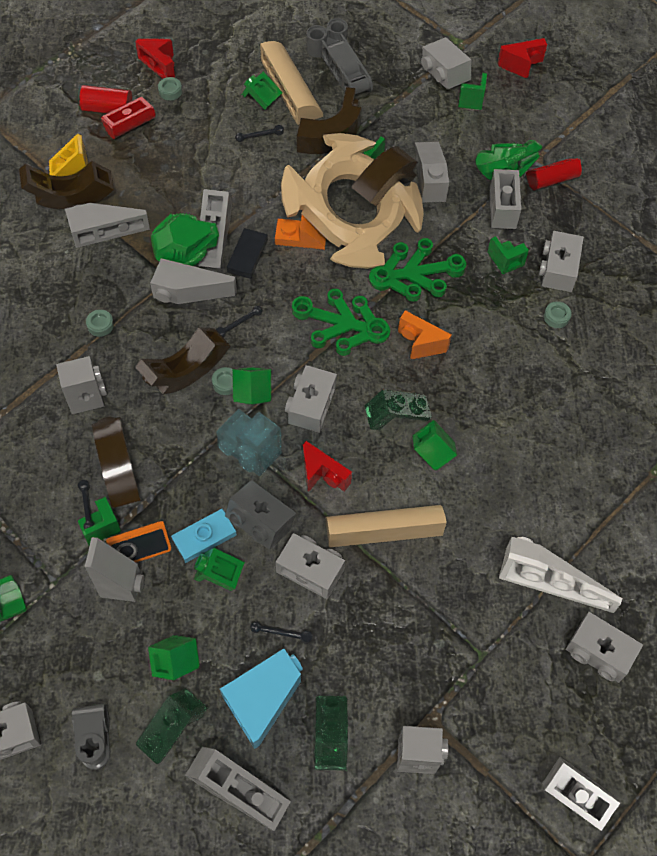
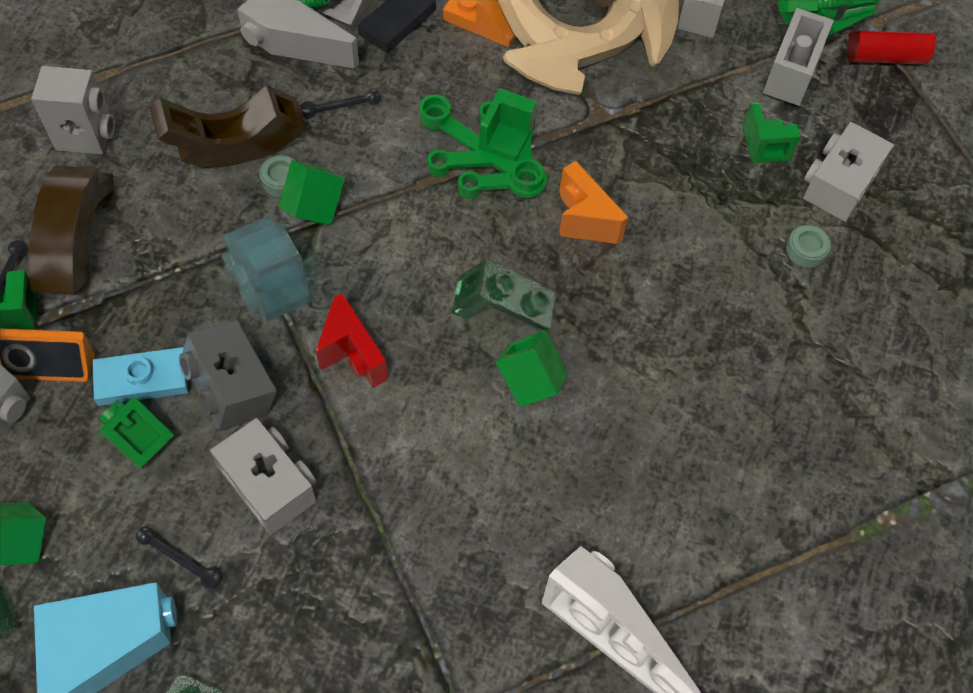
camera: 20 degrees right, 0 degrees up
(99, 323) = (153, 43): sand green tile -> none
(320, 388) = (385, 239): light grey brick -> none
(353, 301) = (507, 124): none -> green panel
(385, 525) = (401, 458): tan brick -> none
(415, 272) = (621, 117): green plant -> none

